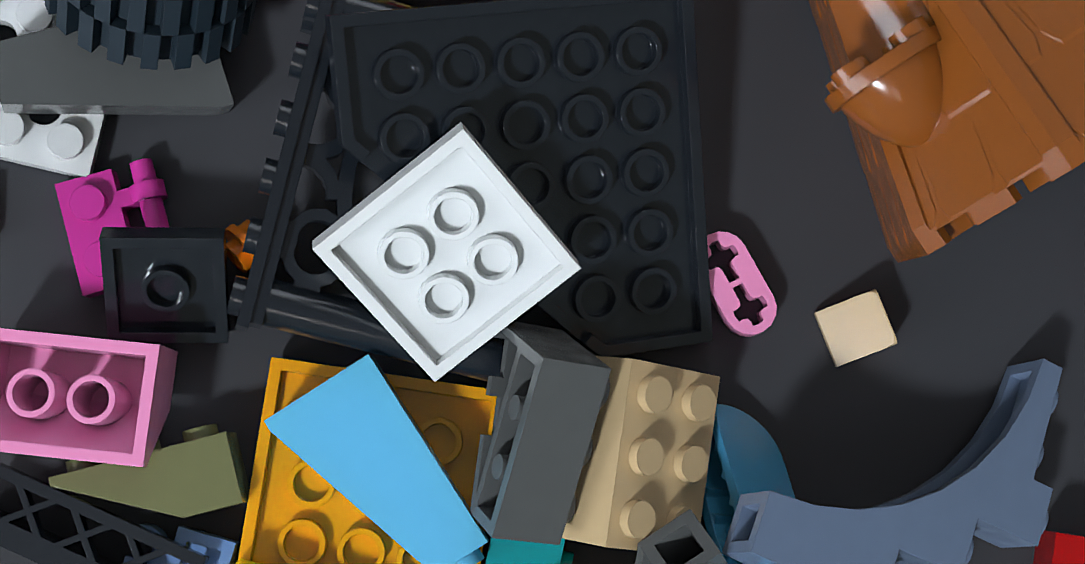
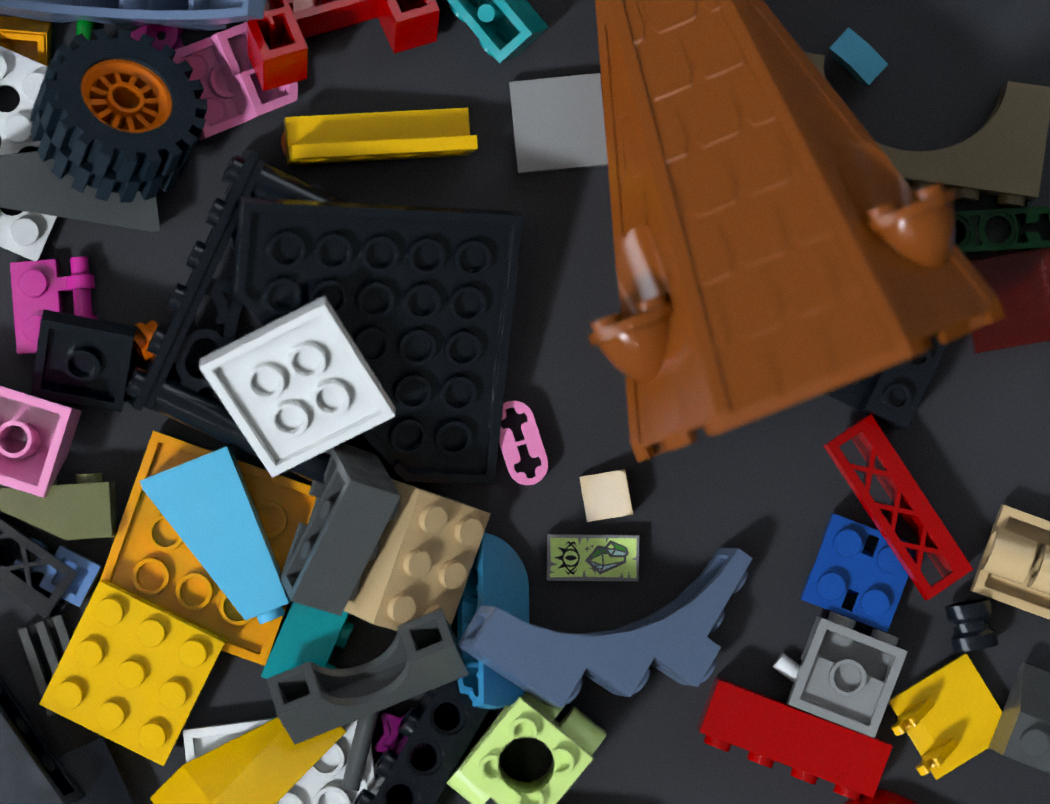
camera: 10 degrees right, 5 degrees up
(854, 409) = (592, 557): none -> tile

